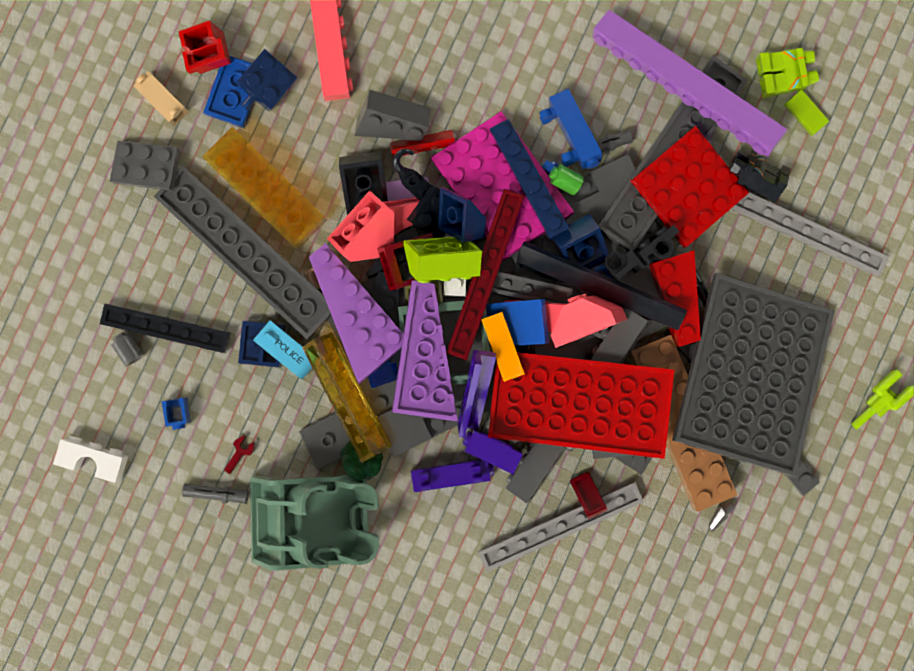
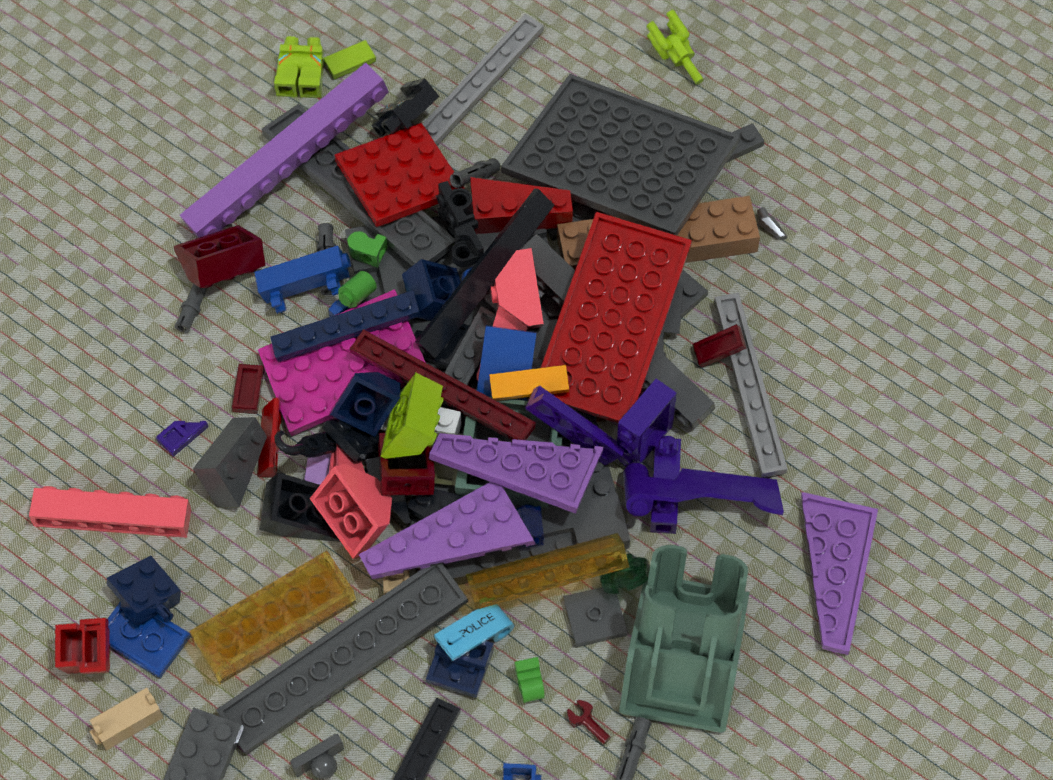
camera: 80 degrees left, 25 degrees down
(161, 255) = (319, 758): none -> dark grey tile
(259, 402) = (529, 679): none -> bright green leg
(411, 69) = (180, 434): none -> dark purple tile
(426, 626) = (838, 550): none -> medium lavender wing
(451, 502) = (694, 484): none -> dark purple door
(465, 113) = (248, 388): none -> dark red tile
(536, 45) = (190, 308): none -> dark grey pin
(577, 55) = (220, 256): none -> dark red slope
(608, 177) = (367, 249): none -> bright green leg
(719, 261) = (480, 169): none -> dark grey pin

